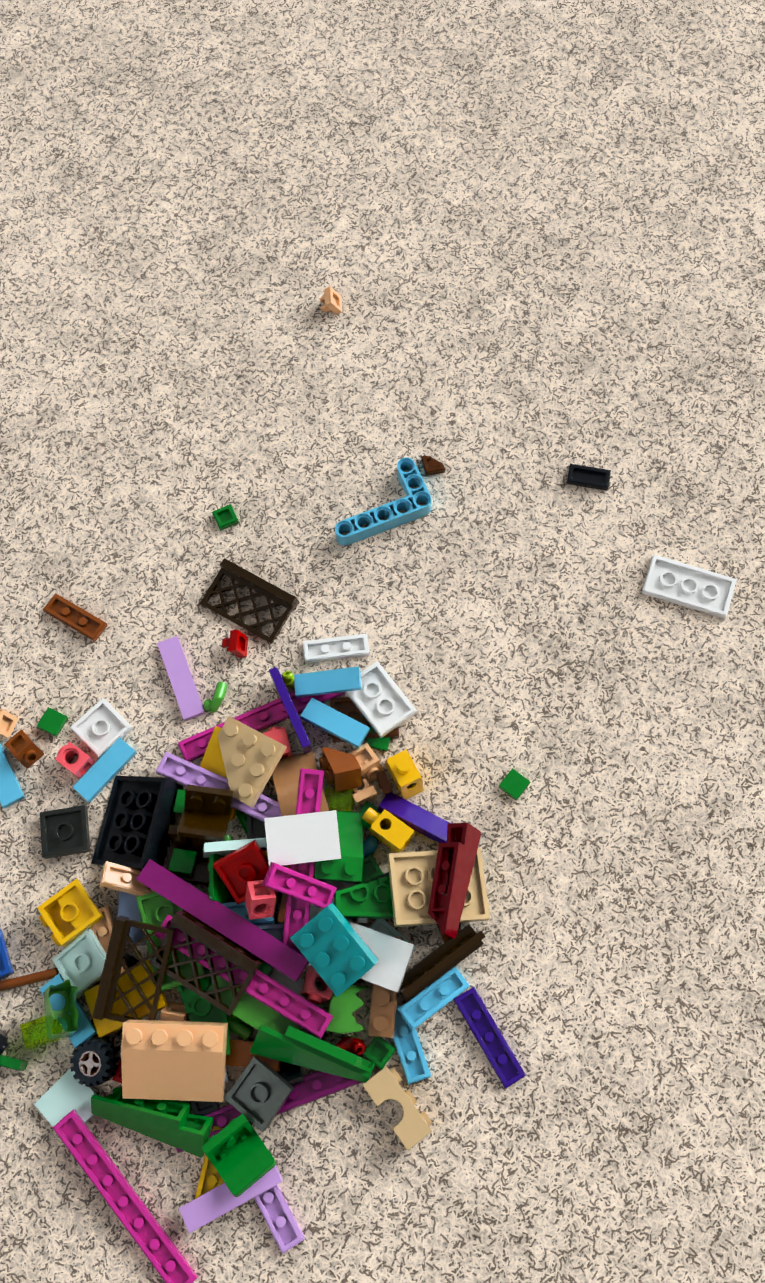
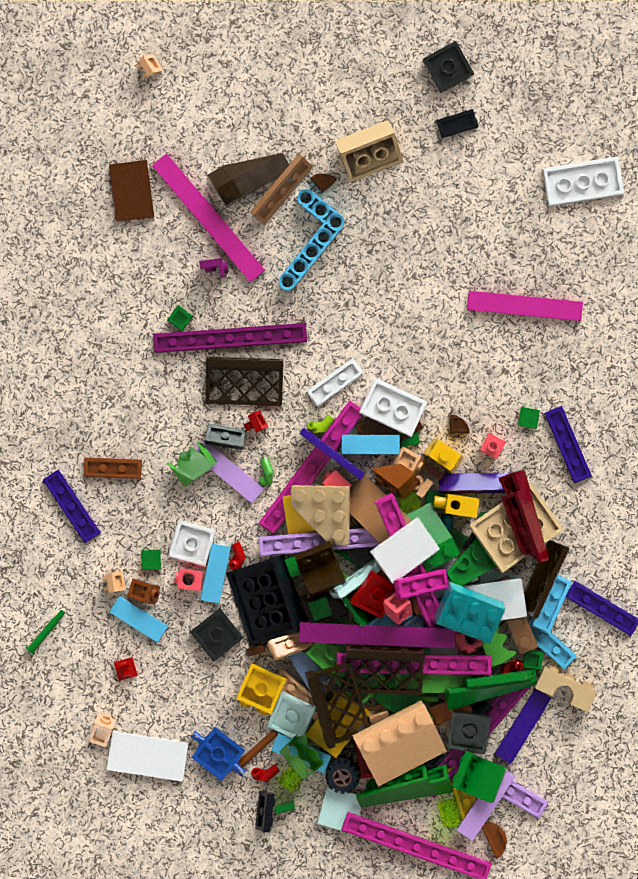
camera: 35 degrees left, 20 degrees up
(13, 632) = (71, 506): none -> dark purple tile
(15, 1012) = (263, 774): none -> red arm
(92, 870) = (255, 650): none -> reddish brown tile
(138, 766) = (238, 558): none -> red arm
(149, 650) = (193, 464): none -> bright green piece
(183, 1181) = (449, 813): none -> clear neon green brick
(198, 642) = (225, 436): none -> plate
(219, 1247) = (496, 838): none -> dark orange tile
(251, 392) = (131, 190): none -> reddish brown tile
(261, 558) = (230, 338): none -> magenta tile
(286, 484) = (212, 264): none -> magenta bracket
(306, 447) = (208, 217): none -> dark pink tile
(325, 1125) = (522, 725): none -> dark purple tile
(327, 682) = (347, 416): medium azure tile -> none
(358, 429) = (245, 177): none -> dark brown wedge
(387, 452) = (281, 189): none -> medium nougat plate
(436, 753) = (458, 425): none -> reddish brown tile
(460, 790) = (492, 446): none -> coral brick
(490, 459) = (369, 151): none -> tan slope
(542, 834) = (567, 444): none -> dark purple tile
(569, 672) = (524, 305): none -> dark pink tile
(606, 424) = (448, 67): none -> pearl dark grey plate

